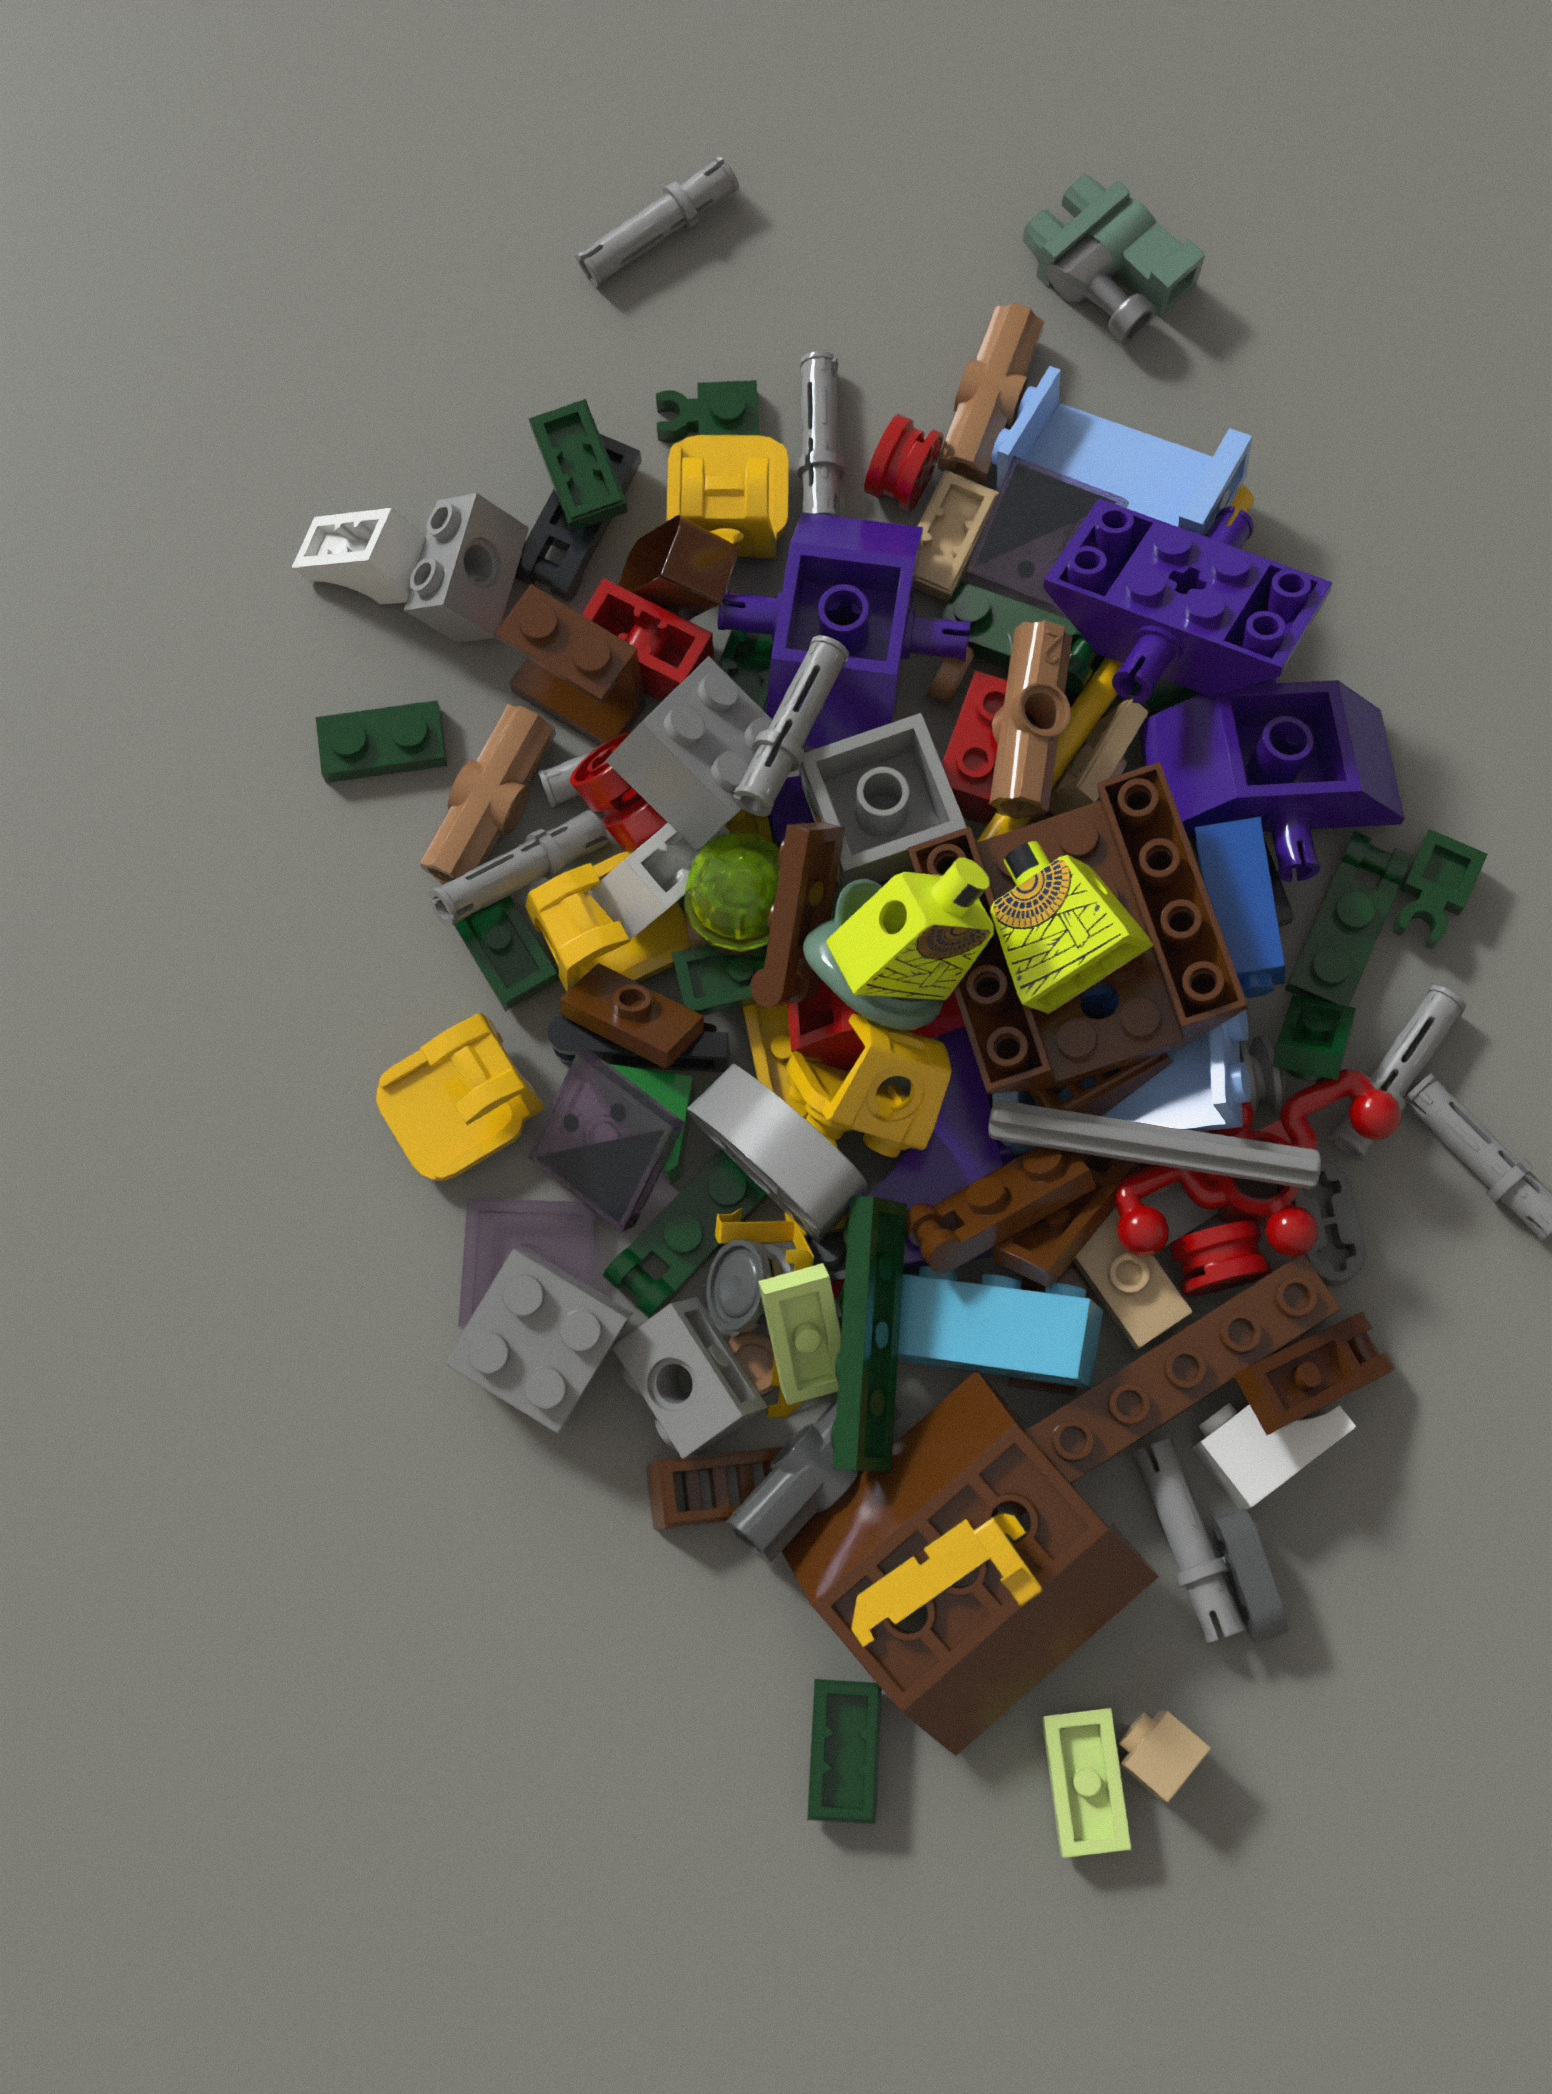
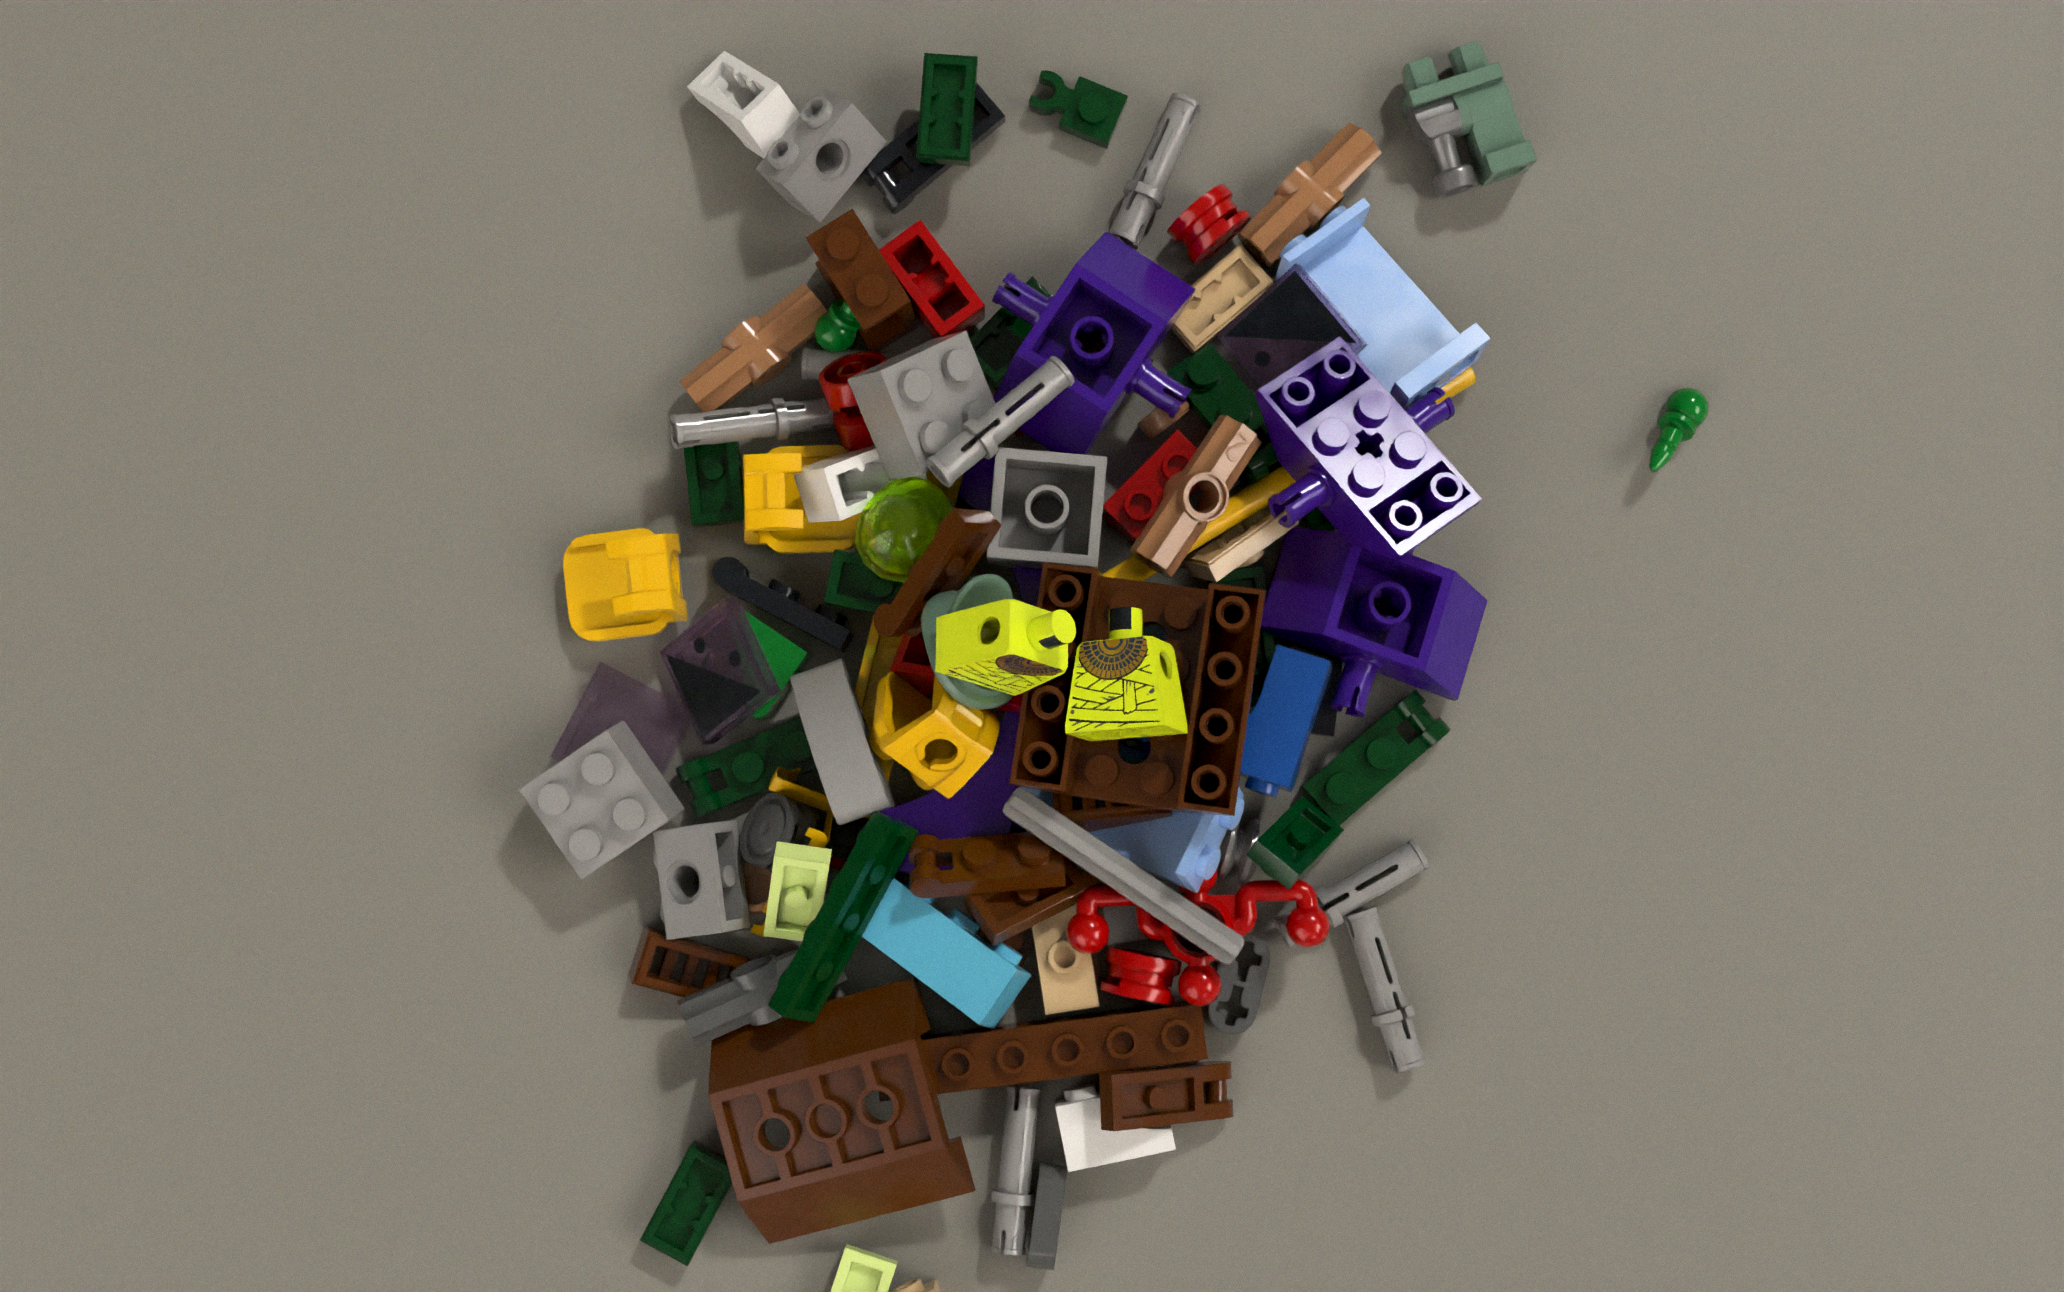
camera: 20 degrees right, 10 degrees up
(381, 741) = (695, 263): dark green plate -> none
(565, 734) = (837, 328): none -> green bar
(632, 1015) = (781, 585): reddish brown plate -> none
(676, 558) = (983, 233): reddish brown piece -> none
(732, 489) = (1058, 184): yellow piece -> none
(950, 1560) = (821, 1112): yellow piece -> none
(1440, 880) = (1462, 758): dark green plate -> none
(1479, 446) = (1683, 413): none -> green bar

